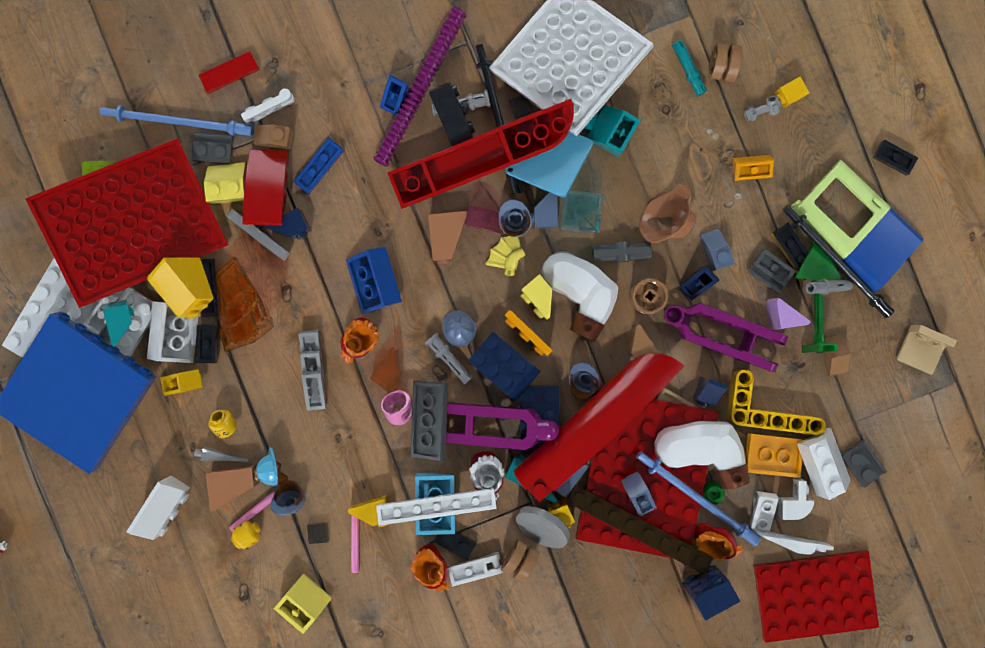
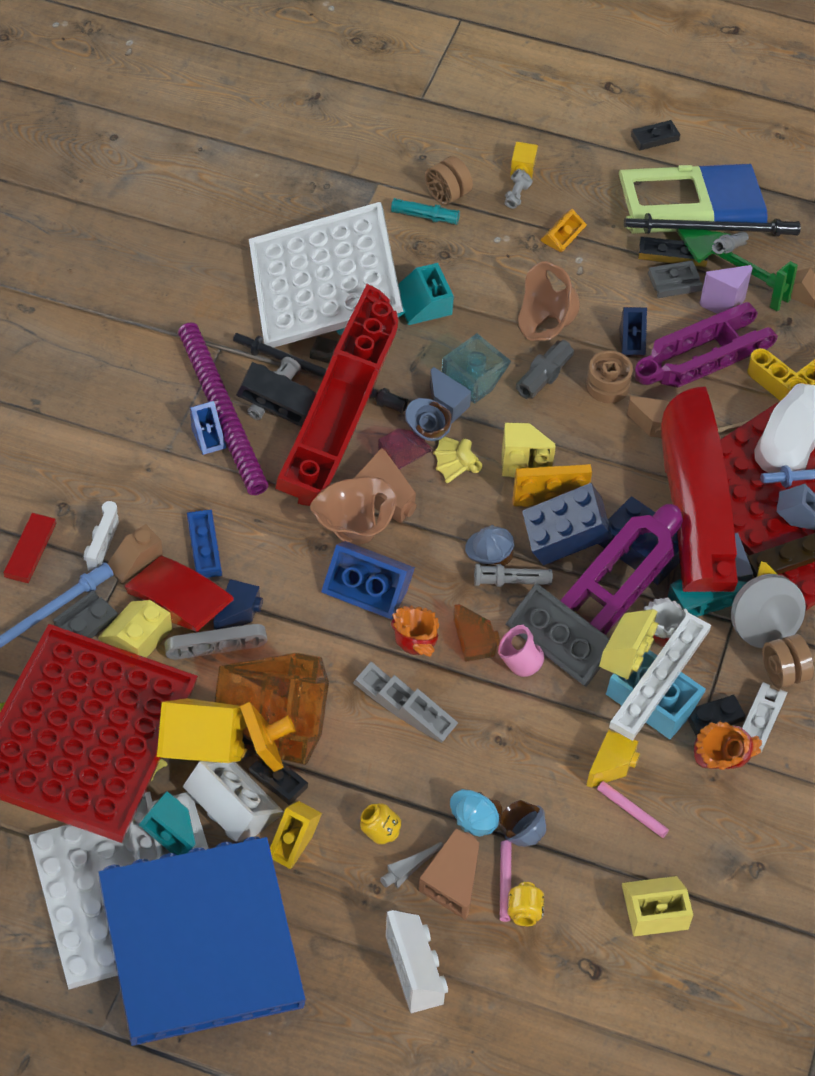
camera: 55 degrees left, 35 degrees down
(207, 323) = (264, 734): none -> light orange tile
(318, 533) = (588, 835): clear smoke tile -> none
(406, 232) = (349, 508): none -> nougat piece
(438, 476) = (629, 643): none -> light yellow slope
(555, 168) = (411, 355): medium azure piece -> none
(584, 286) = (559, 415): white piece -> none
(584, 381) = (644, 476): sand blue piece -> none
(709, 392) = (748, 391): dark blue slope -> none
(716, 250) = (613, 298): sand blue slope -> none

